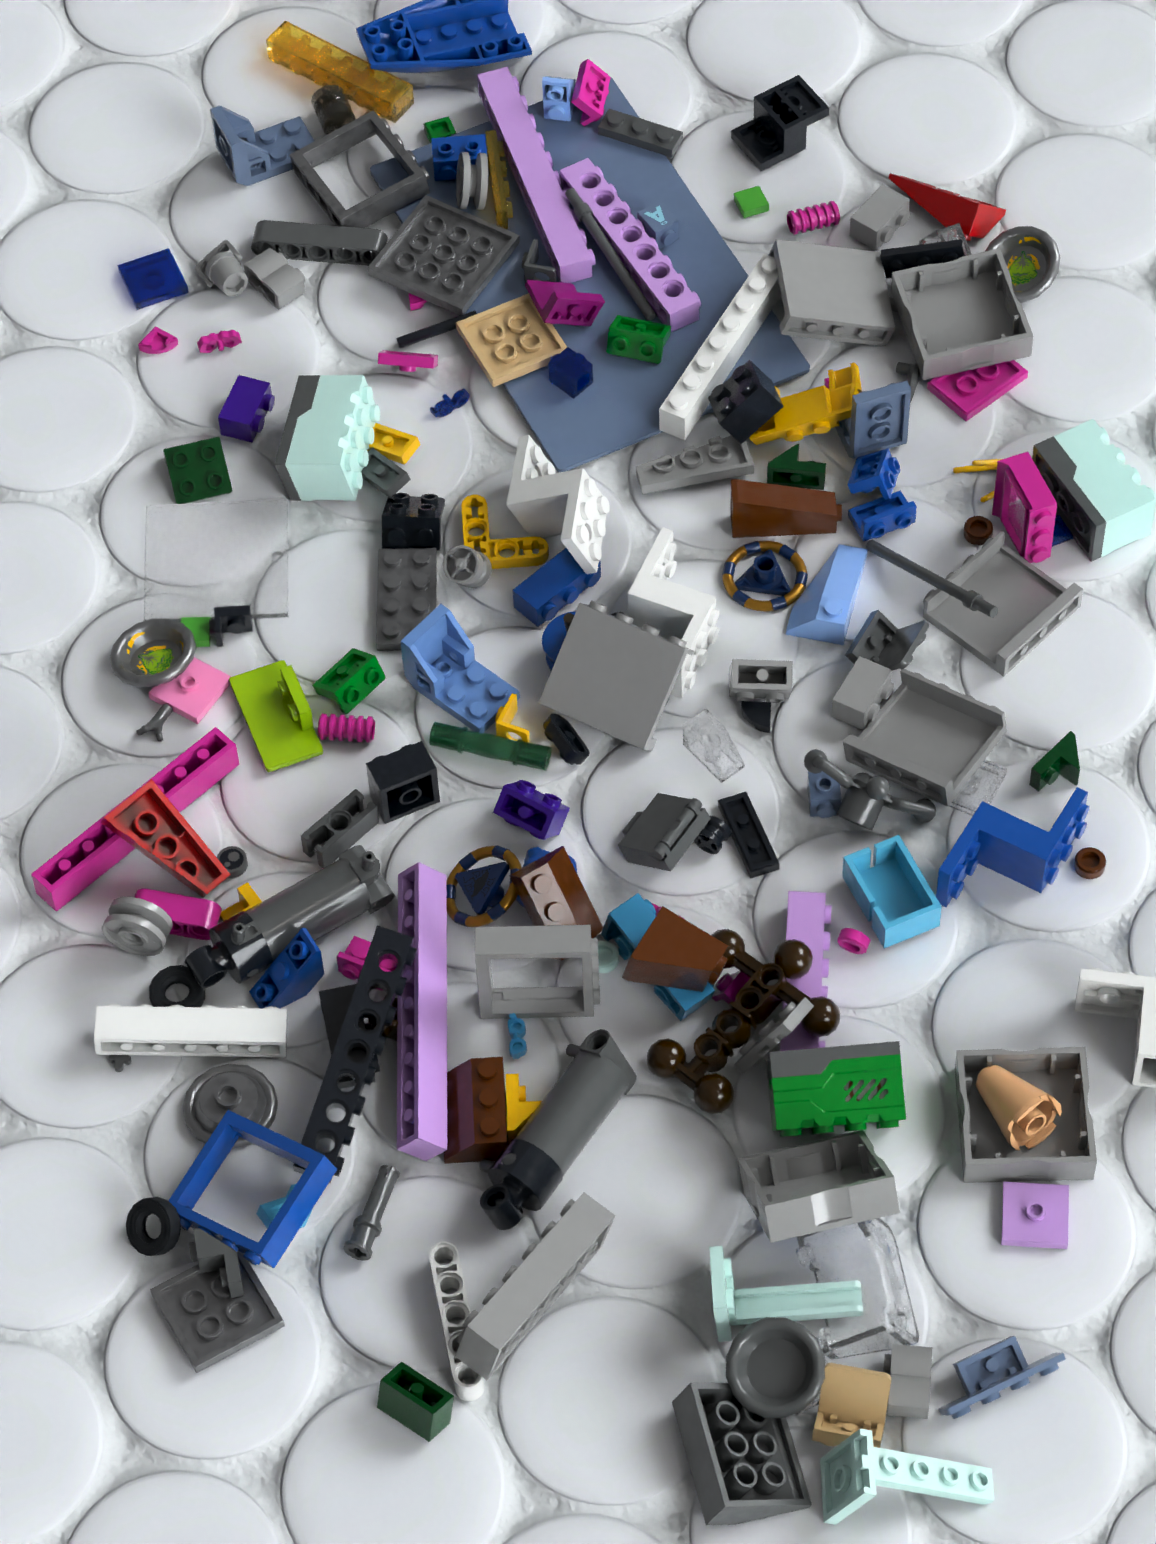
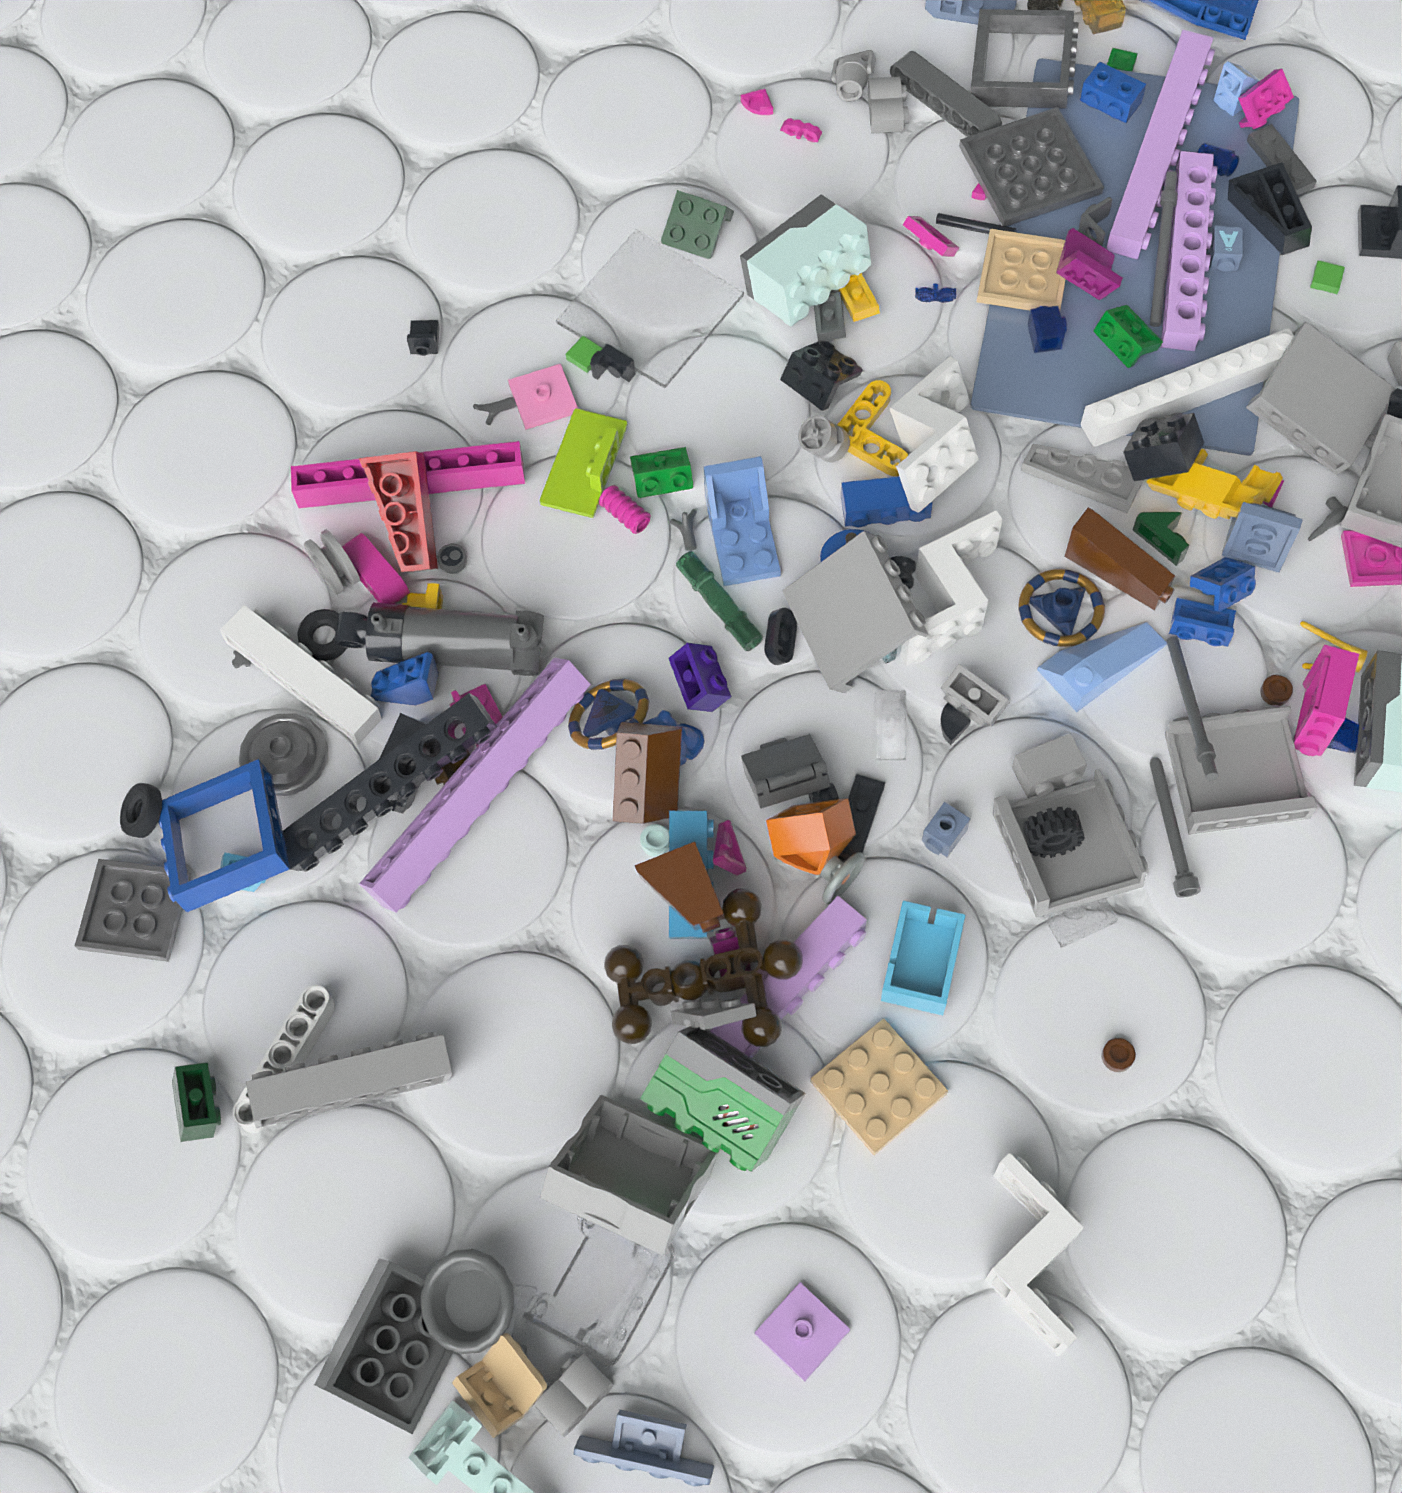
camera: 40 degrees right, 10 degrees up
(38, 707) = (423, 337): none -> black bracket
(152, 652) = (533, 349): flat silver piece -> none
(153, 278) = (797, 49): clear blue tile -> none
(214, 1256) = (150, 862): dark grey slope -> none
(246, 408) = (773, 197): dark purple brick -> none
(339, 817) = (537, 580): dark grey piece -> none
(368, 1224) = (291, 928): dark grey pin -> none
(403, 782) = (620, 583): black brick -> none
(404, 593) = (765, 427): flat silver plate -> none
(412, 712) = (686, 529): none -> dark grey bar
(472, 181) = (1100, 116): light grey wheel -> none
(476, 1111) = (448, 898): reddish brown slope -> none
(497, 171) = (1123, 134): clear yellow plate -> none
(504, 718) = (748, 585): yellow bracket -> none
(517, 1031) = (538, 852): dark azure piece -> none
(517, 1107) = (472, 926): yellow slope -> none
(532, 943) = (569, 817): light grey window -> none
(557, 1130) = (486, 961): dark grey piece -> none
(597, 155) = (1223, 158): none -> clear blue cone
(669, 171) = (1272, 207): none -> black wedge
(733, 862) = (812, 840): none -> orange piece
(789, 1301) = (486, 1209): light aqua bracket -> none
(813, 217) = (1367, 323): dark pink piece -> none
(853, 941) = (858, 976): dark pink tile -> none
(866, 794) = (972, 858): dark grey wheel -> none
(886, 643) = (1106, 737): dark grey bracket -> none
(911, 732) = (1053, 832): none -> black tyre
(936, 1007) = (879, 1086): none -> tan plate
(1012, 847) = (1055, 995): blue bracket -> none
(1018, 1107) = (861, 1227): light nougat cone -> none
(1033, 709) = (1185, 882): none -> dark grey piece
(1059, 760) = (1169, 944): dark green slope -> none
(1064, 1154) = (865, 1239): light grey tile -> none

